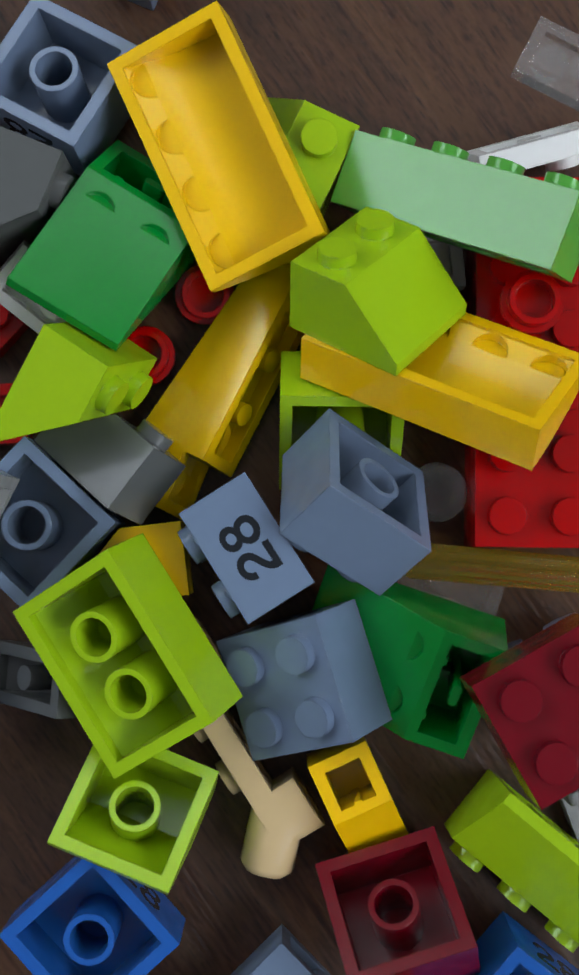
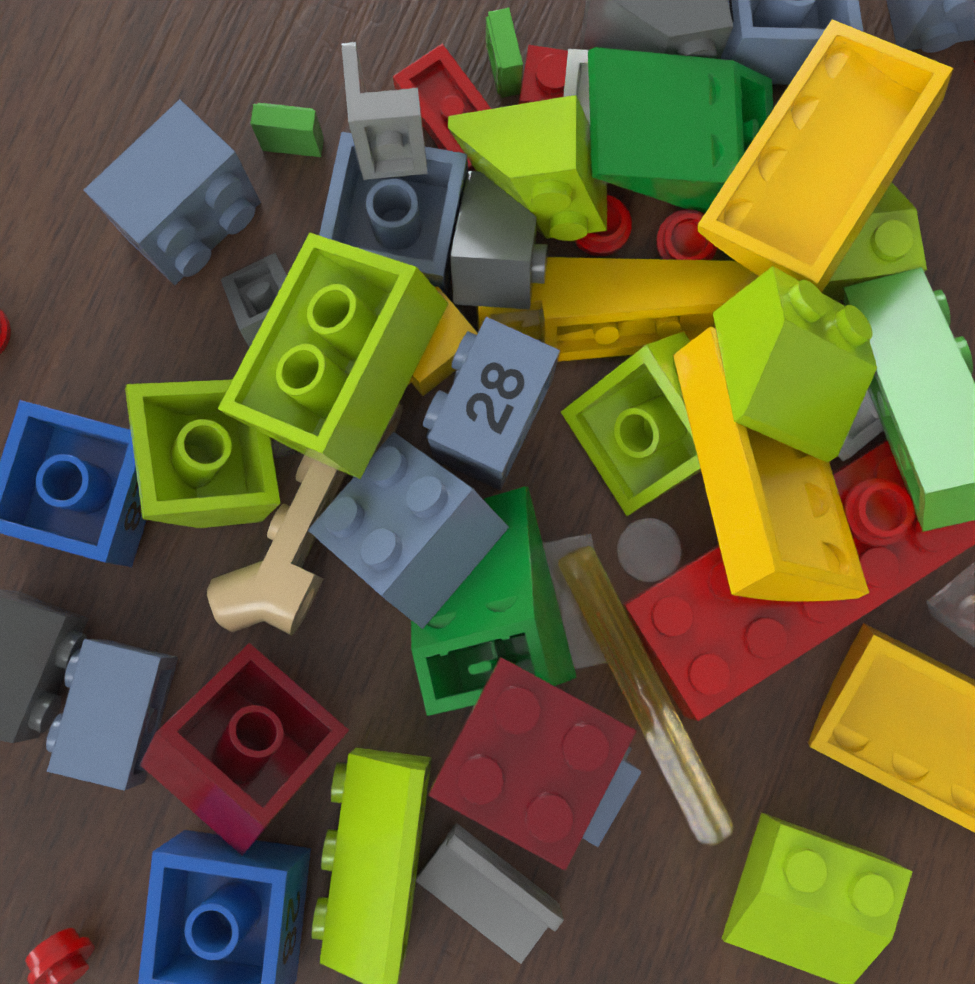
camera: 60 degrees right, 5 degrees down
(353, 504) = (592, 470): sand blue brick -> none
(355, 795) = (334, 643): yellow slope -> none

